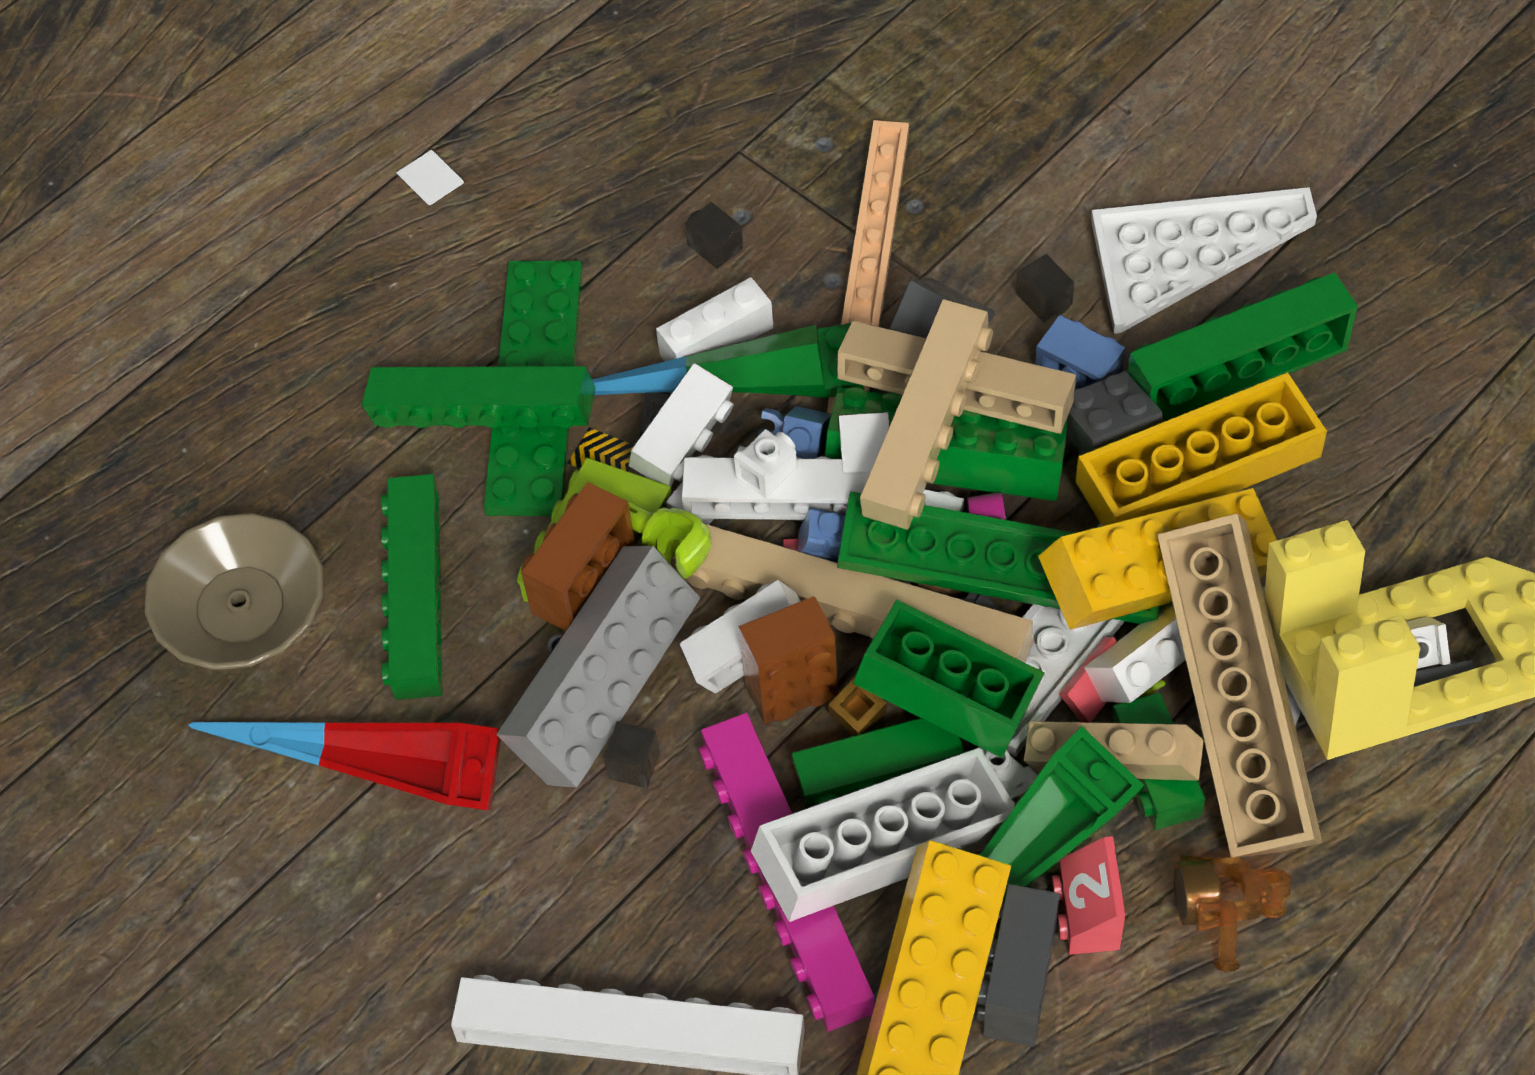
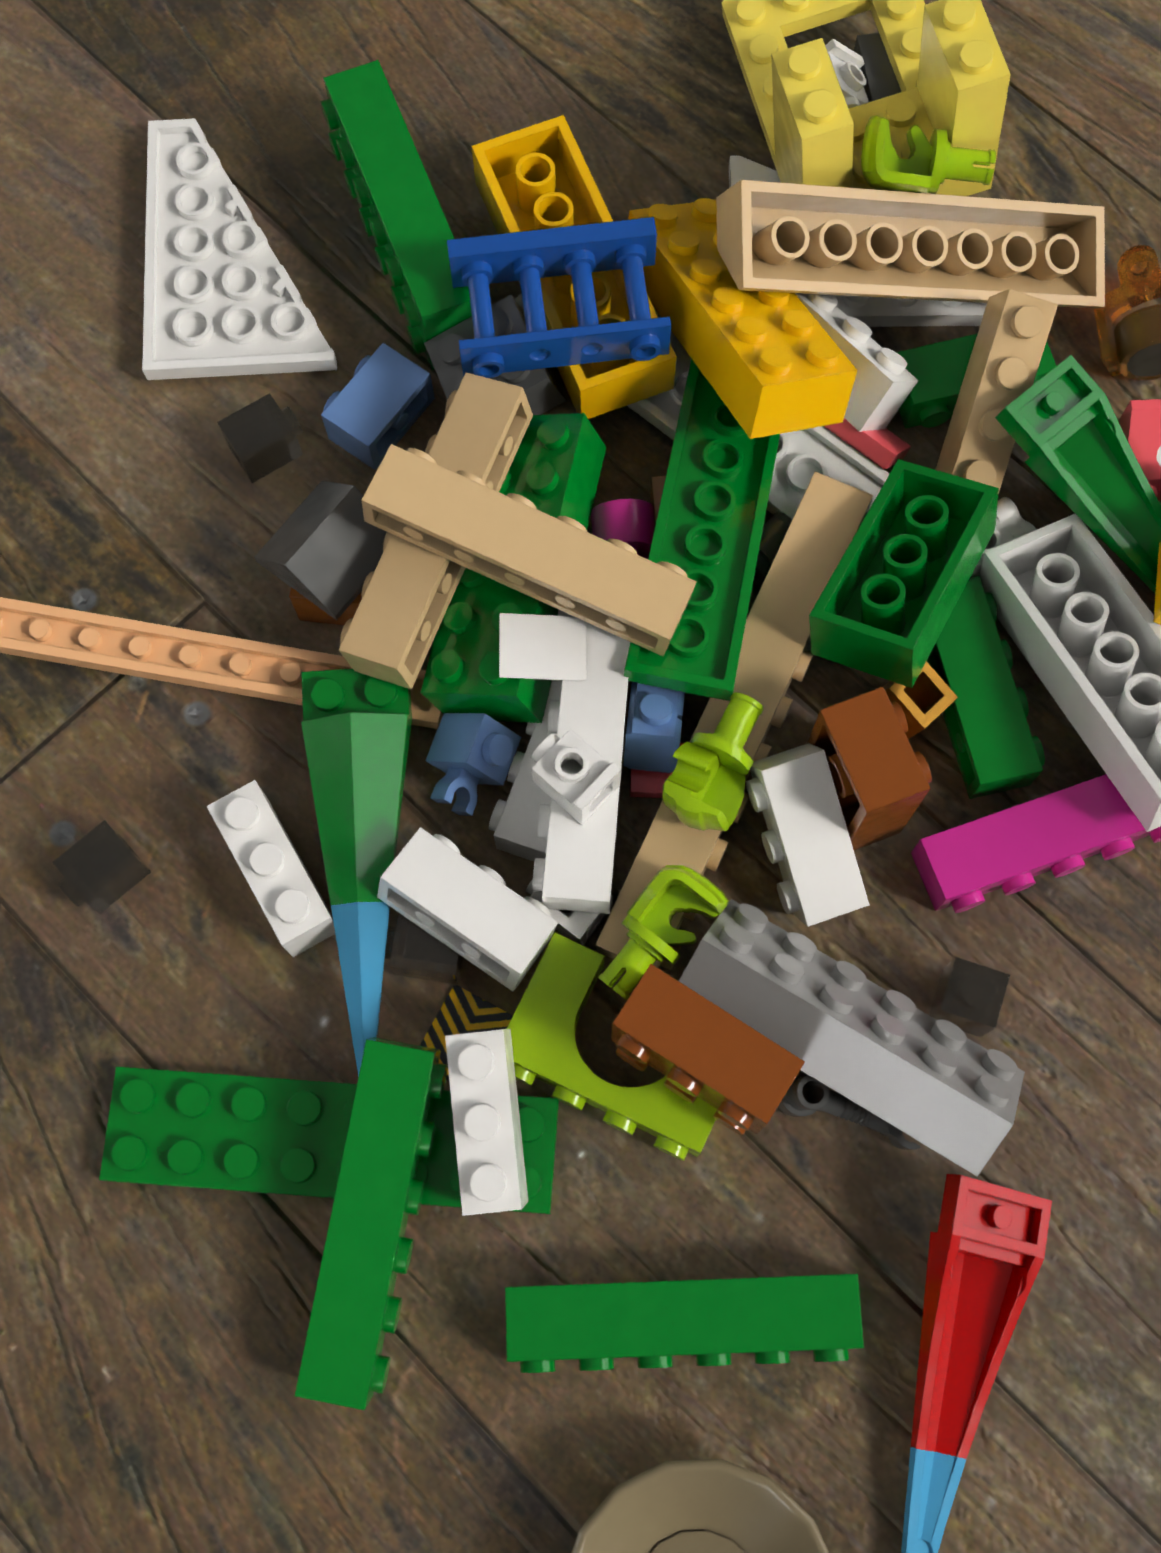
camera: 90 degrees left, 15 degrees up
(538, 448) = (486, 1122): none -> white brick
(780, 556) = (713, 769): none -> lime piece
(1176, 405) = (553, 253): none -> blue fence
(1294, 655) = (927, 164): none -> lime piece

